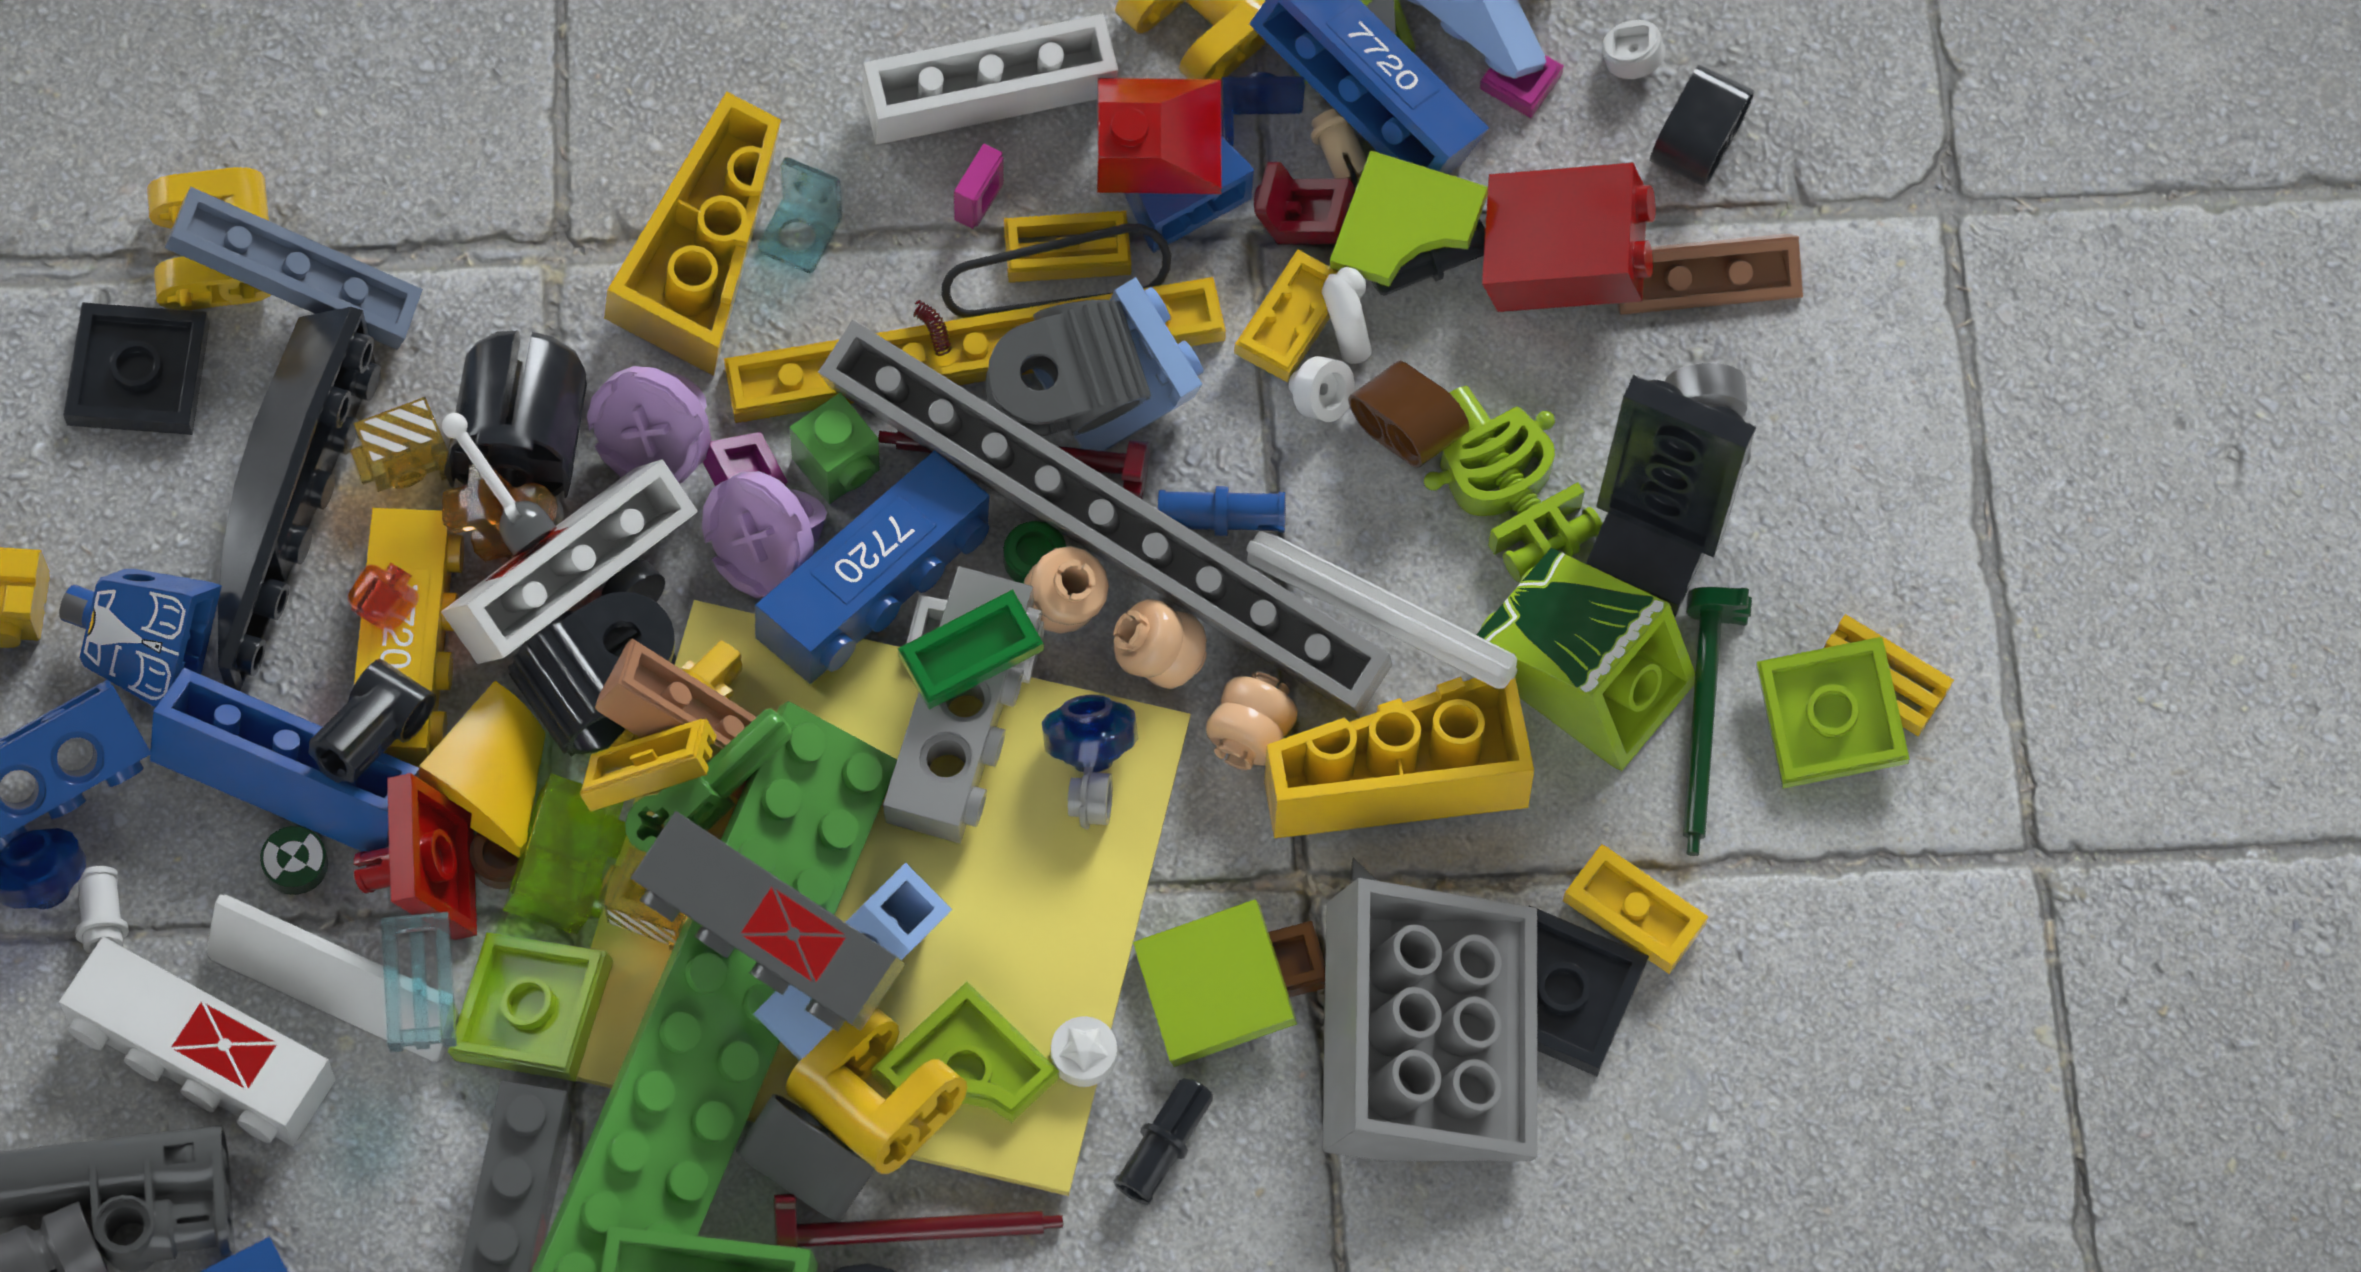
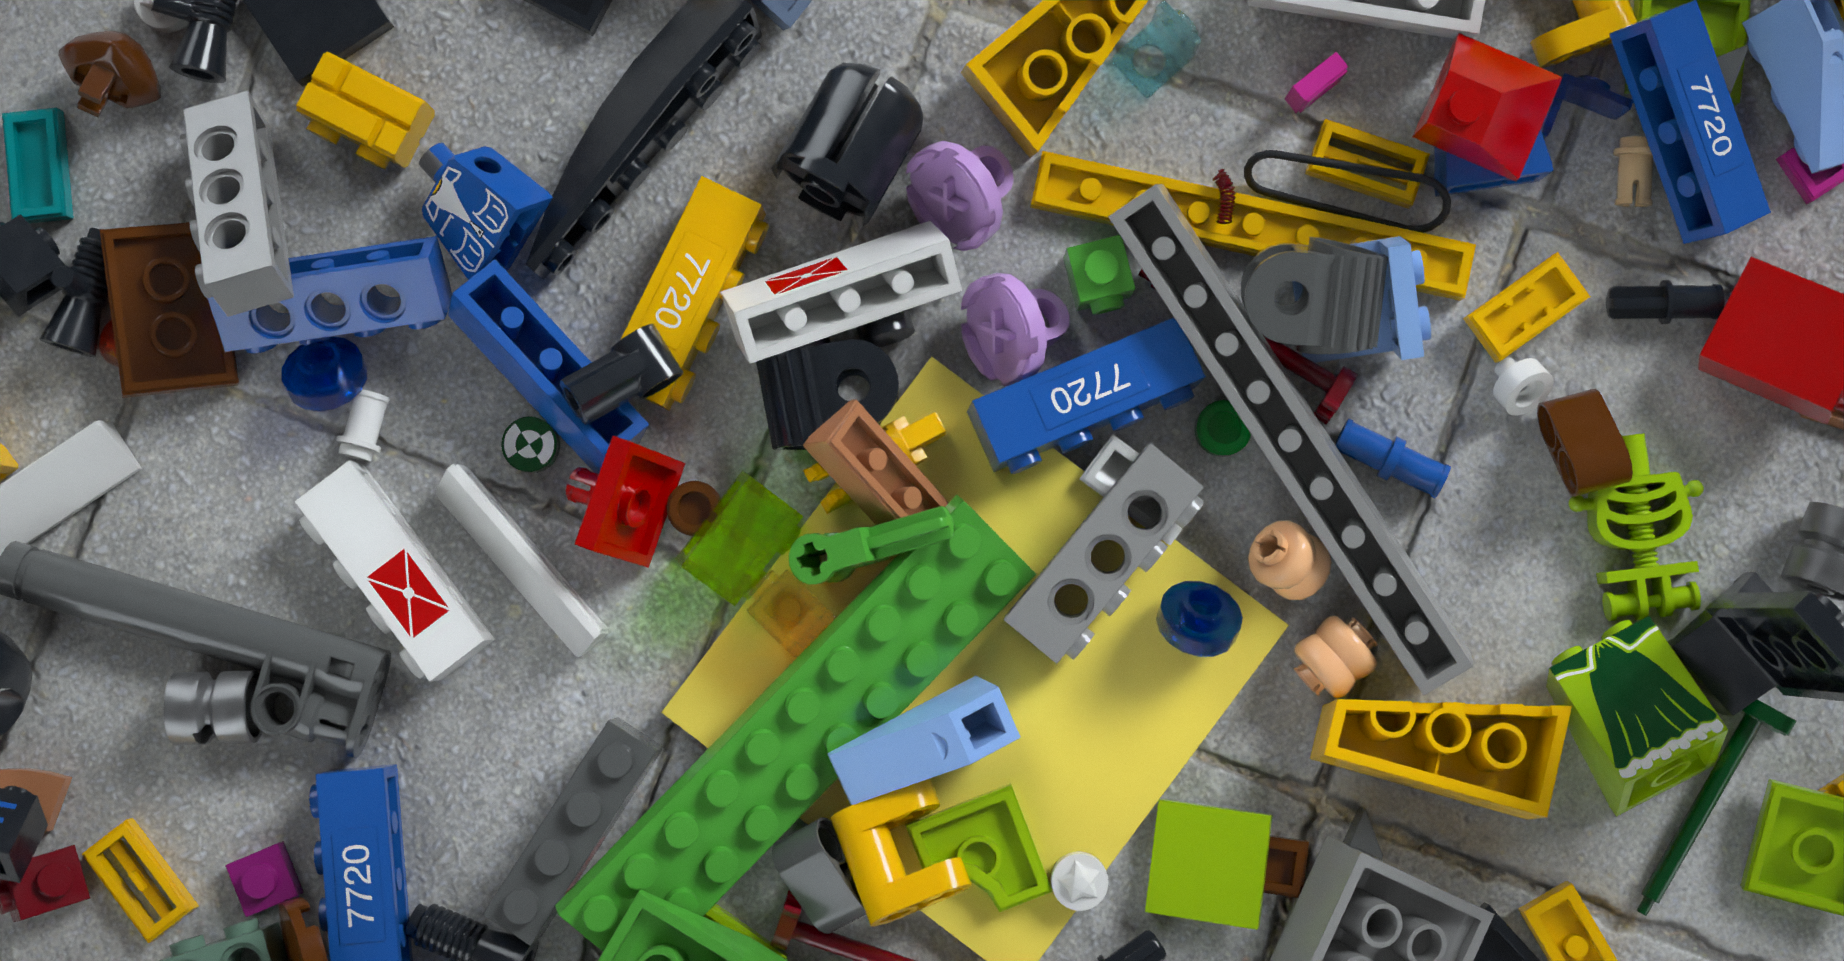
camera: 35 degrees right, 20 degrees up
(383, 595) = (678, 259): clear red piece -> none
(399, 447) = (747, 123): clear yellow brick -> none
(422, 1034) = (555, 602): clear light blue tile -> none
(479, 510) = (801, 223): clear orange hips -> none
(491, 766) = (711, 438): yellow slope -> none
(522, 522) = (811, 250): hinge -> none
(531, 1006) = (664, 651): lime tile -> none
(648, 764) = (821, 516): yellow tile -> none
(741, 454) = (1021, 255): magenta plate -> none
(767, 921) = (862, 703): dark grey brick -> none
(970, 649) = (1130, 523): green tile -> none
(1068, 588) = (1250, 486): light nougat piece -> none
(1091, 798) = (1175, 672): light grey plate -> none
(1302, 208) = (1580, 215): dark red bracket -> none
(1342, 301) = (1573, 328): white arm -> none
(1382, 609) = (1485, 613): white axle -> none
(1402, 213) = (1661, 262): lime tile -> none

